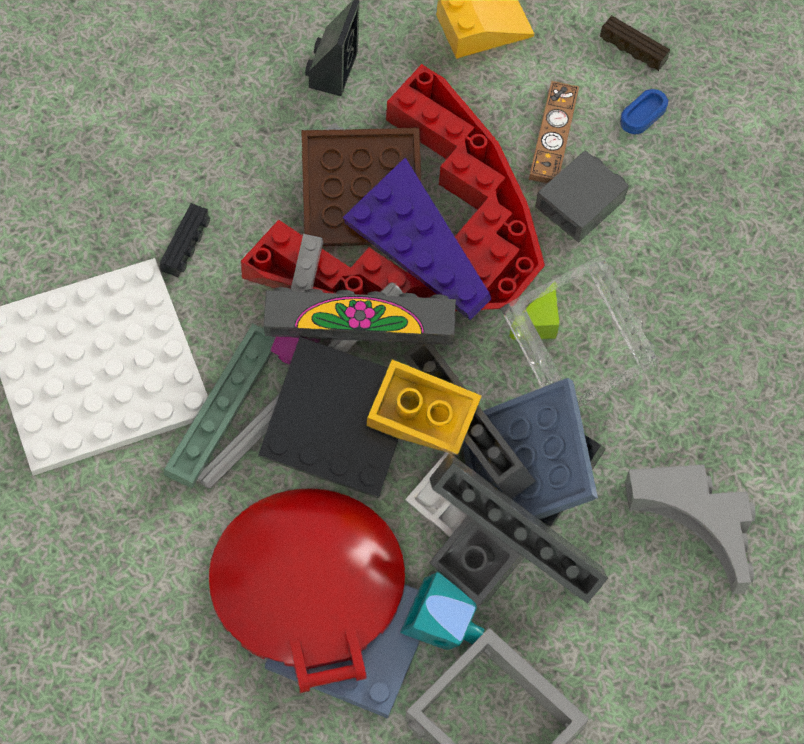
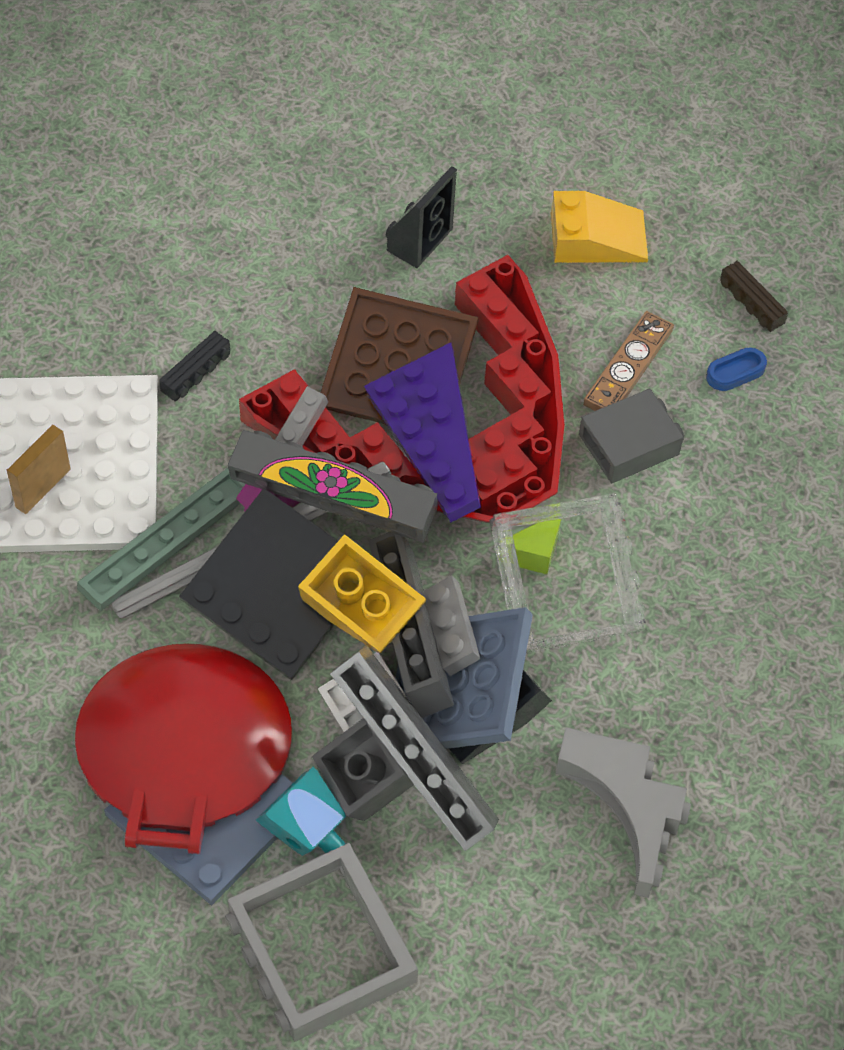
camera: 20 degrees right, 5 degrees down
(92, 377) = (39, 469): none -> pearl gold tile
(504, 411) = (451, 625): none -> light grey plate

